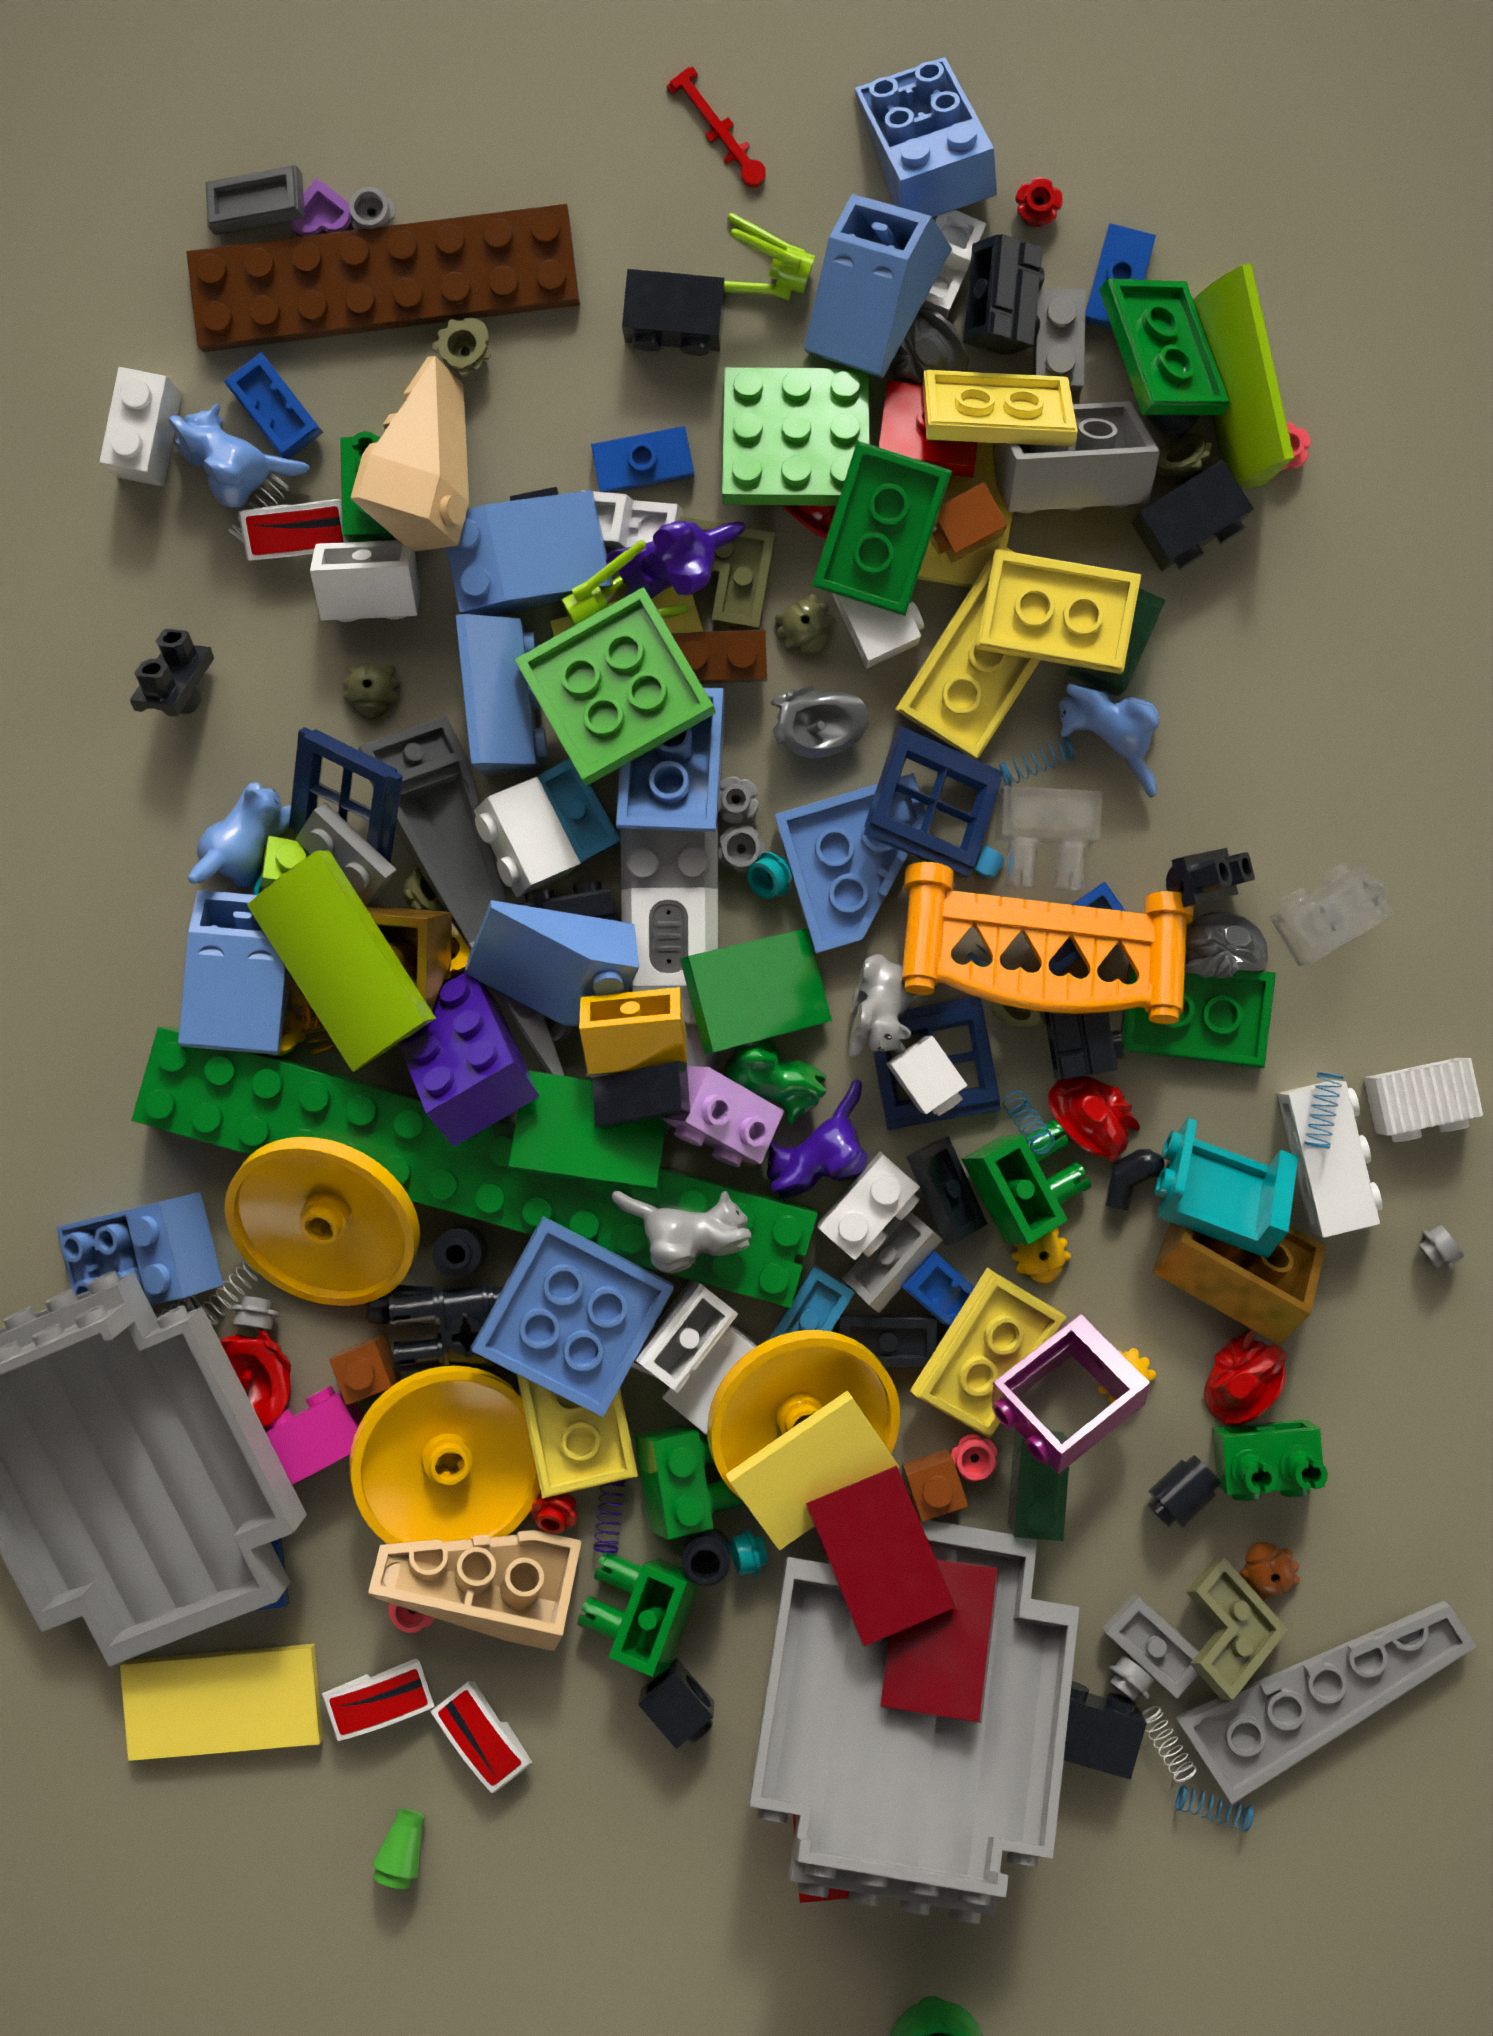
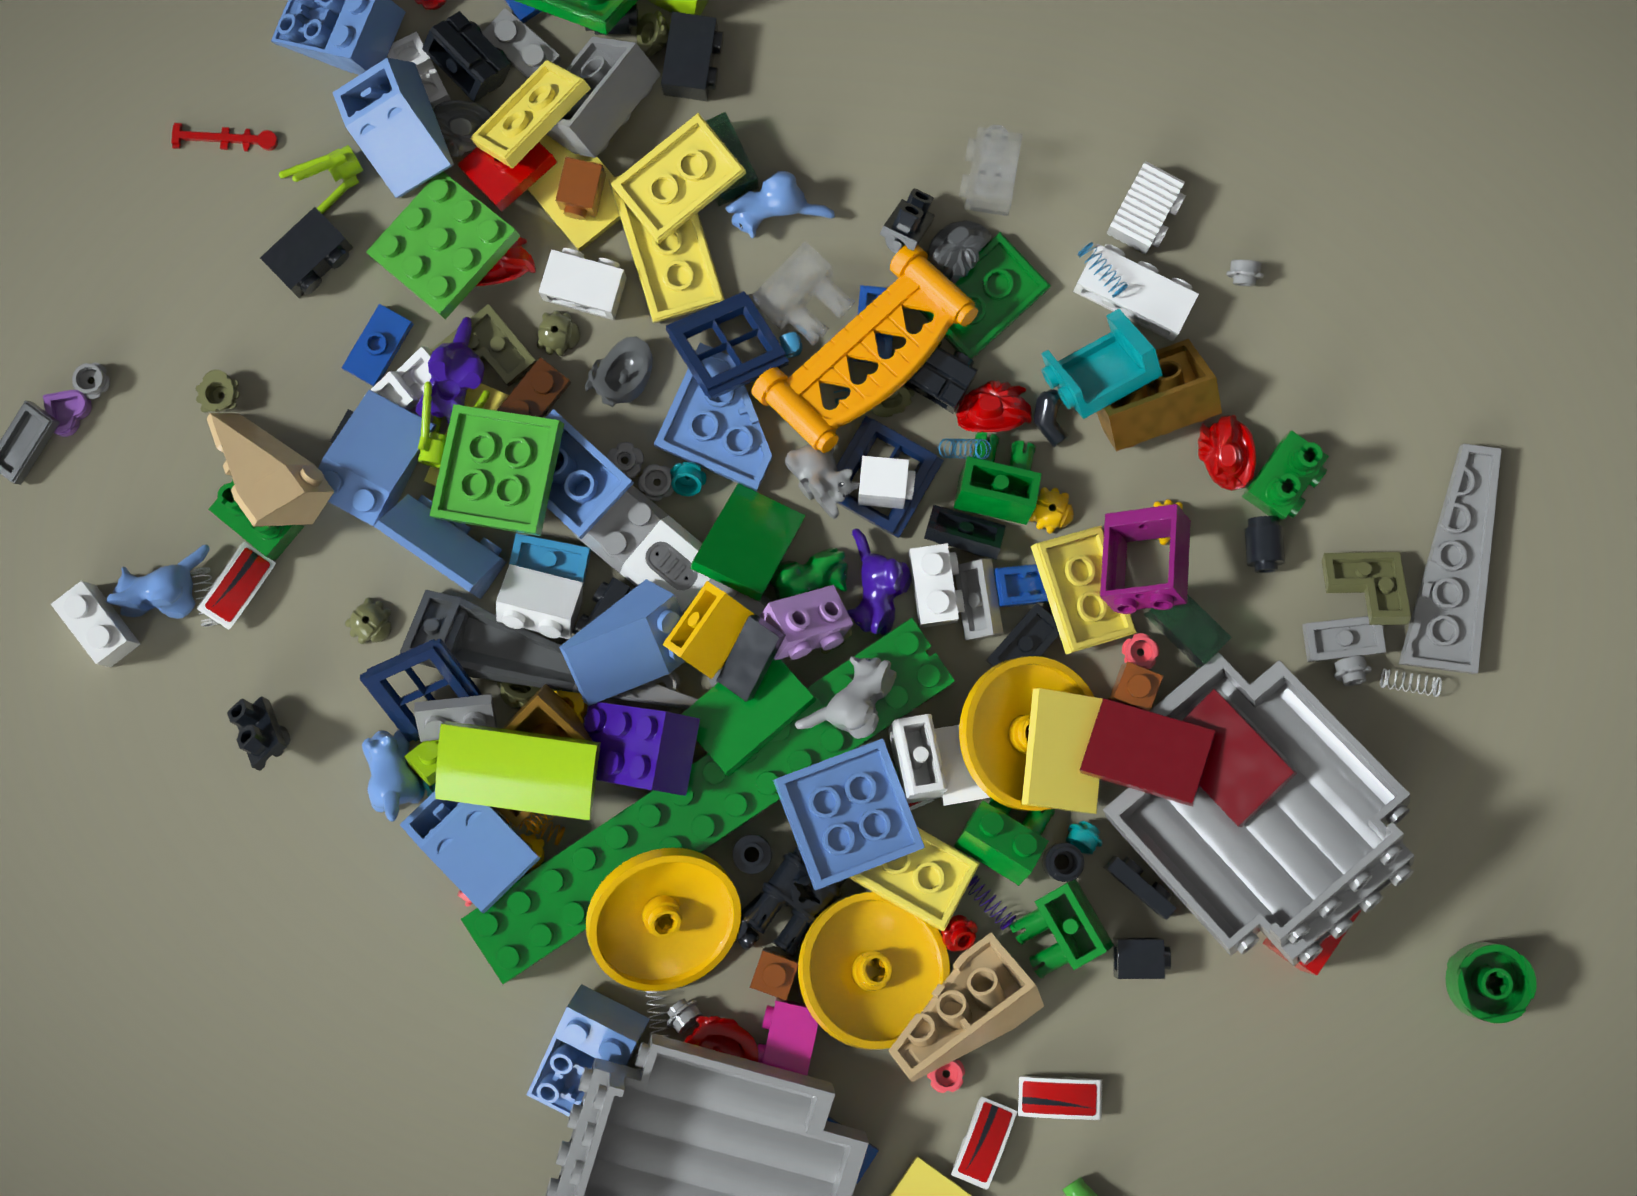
camera: 45 degrees left, 5 degrees down
(273, 406) = (153, 536): blue plate -> none
(365, 580) = (304, 567): white brick -> none
(383, 278) = (135, 407): reddish brown plate -> none
(748, 1668) = (1153, 896): none -> black plate
(815, 1304) = (966, 666): dark azure plate -> none
(881, 528) = (541, 238): green tile -> none
(1004, 768) = (770, 243): dark azure piece -> none
(1103, 1732) = (1370, 712): black brick -> none
(1250, 1808) = (1454, 703): dark azure piece -> none
(1262, 1562) = (1347, 534): dark orange animal -> none

